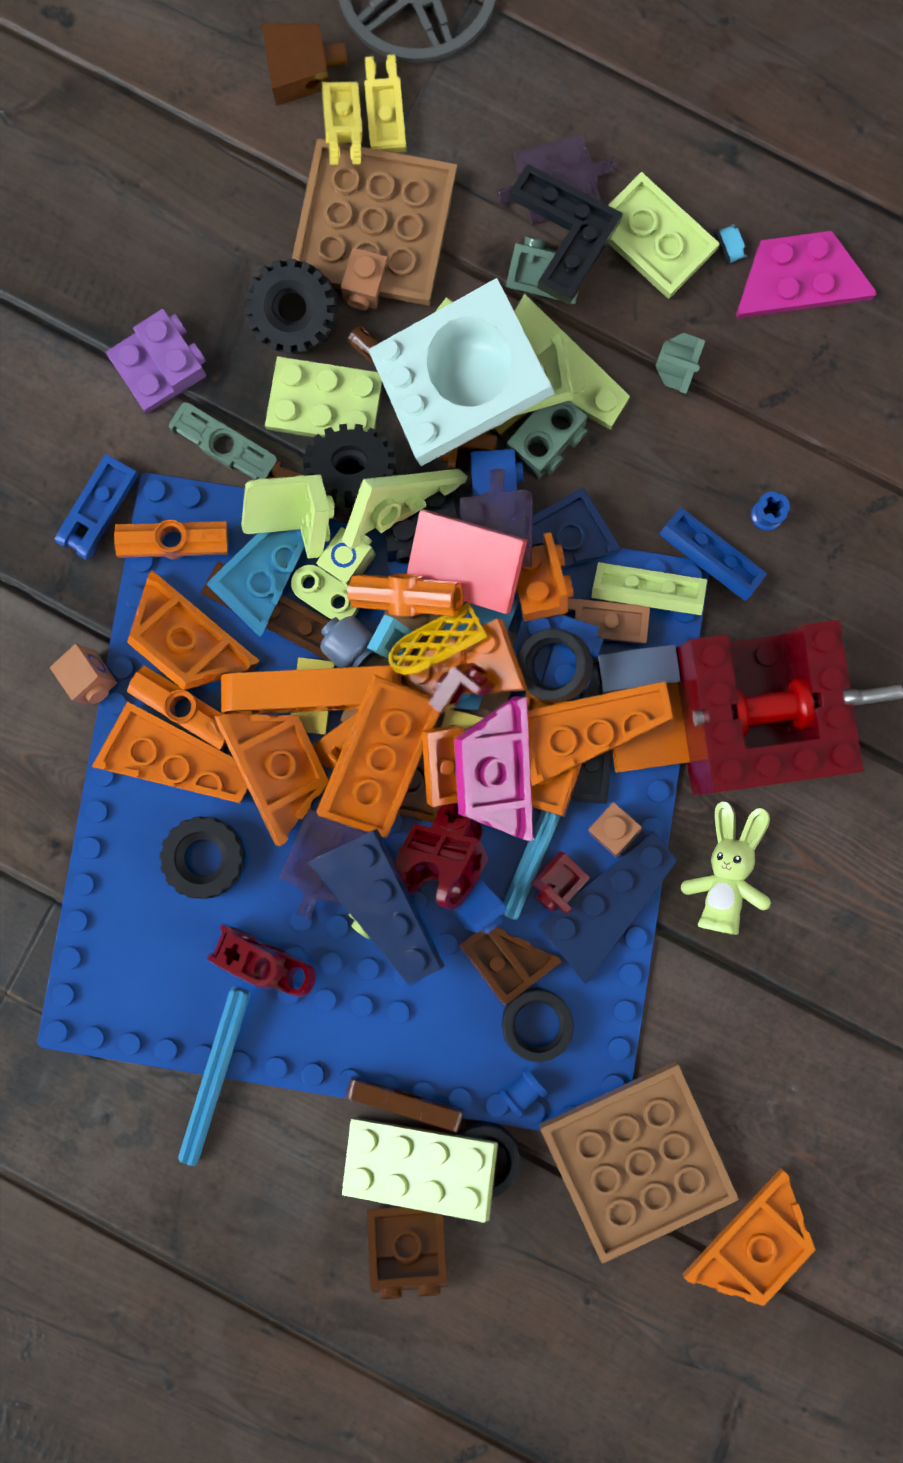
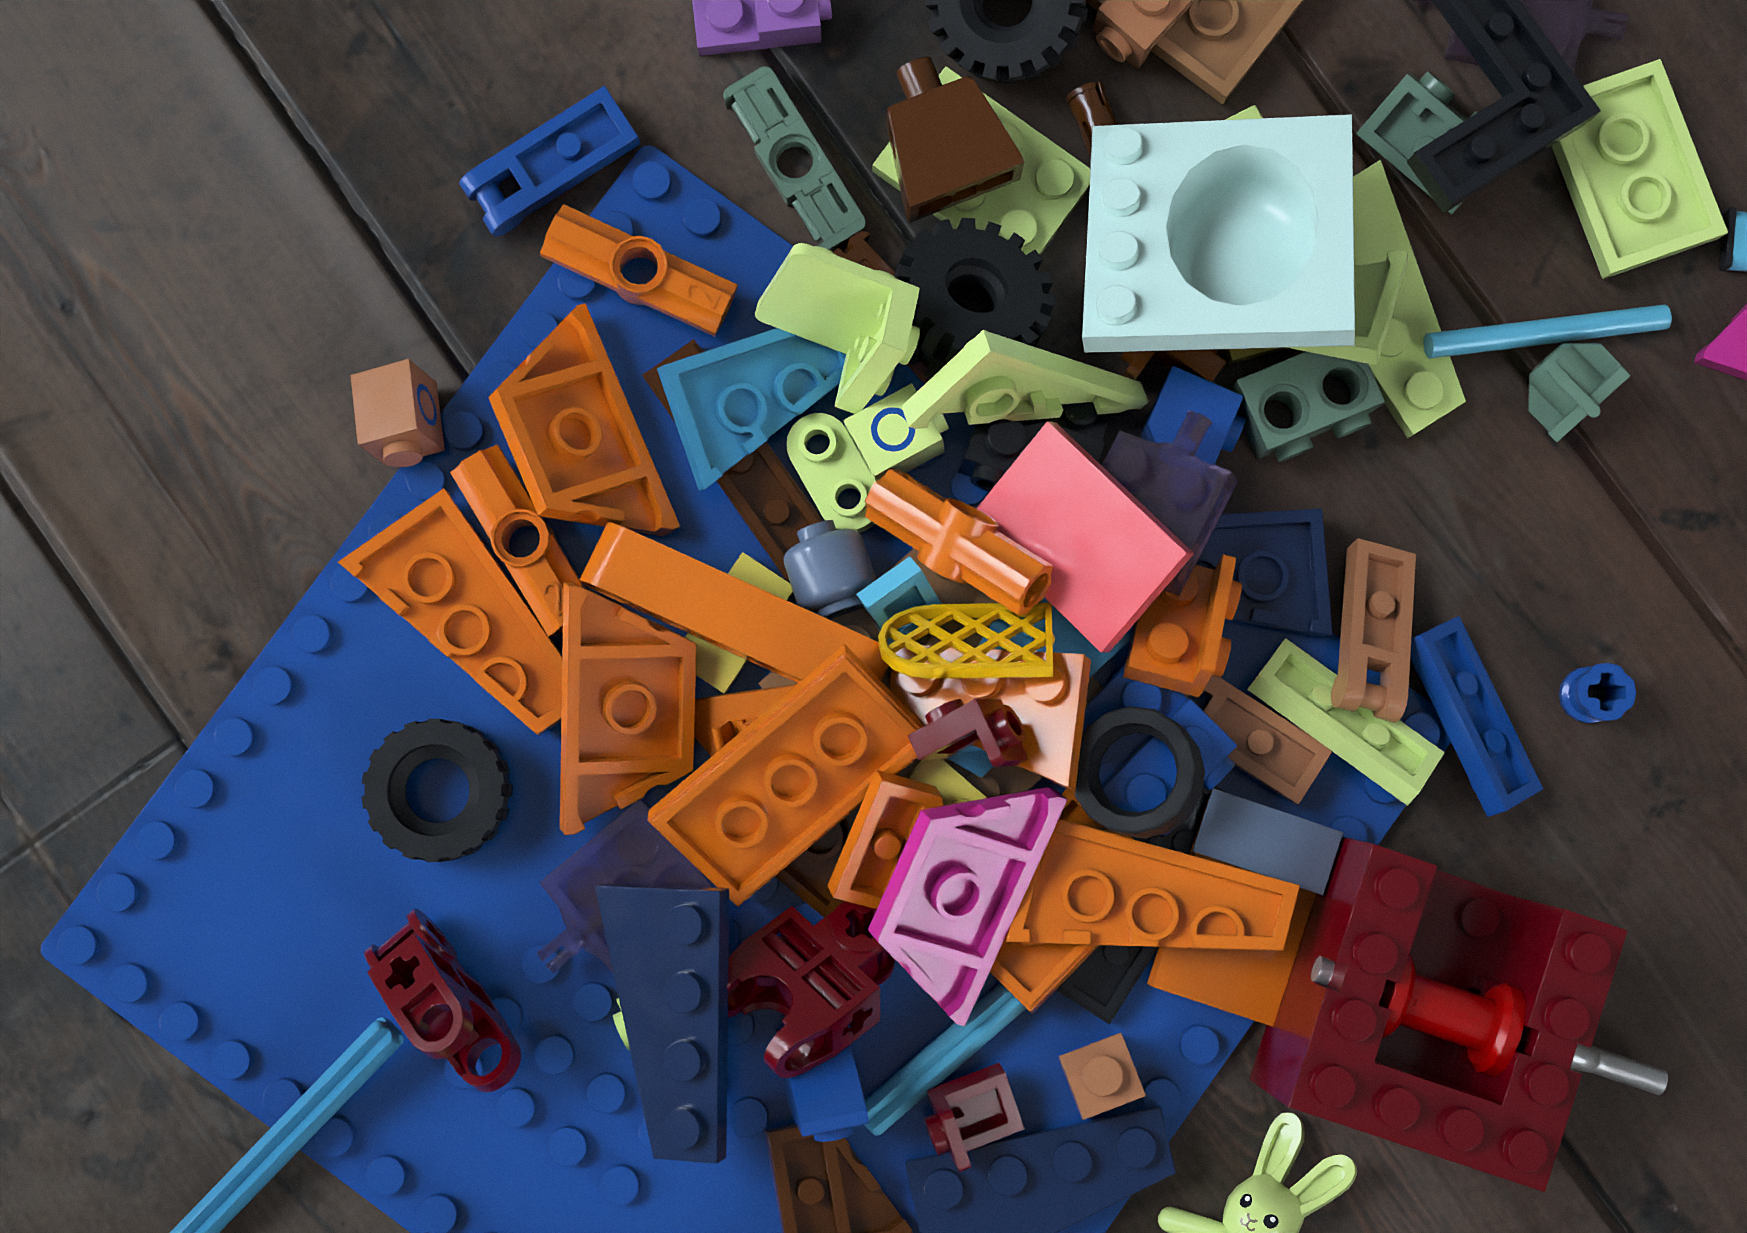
camera: 20 degrees right, 0 degrees up
(297, 394) = (946, 142): none -> reddish brown torso
(641, 534) = (1375, 630): none -> nougat plate
(653, 339) = (1547, 331): none -> medium azure bar

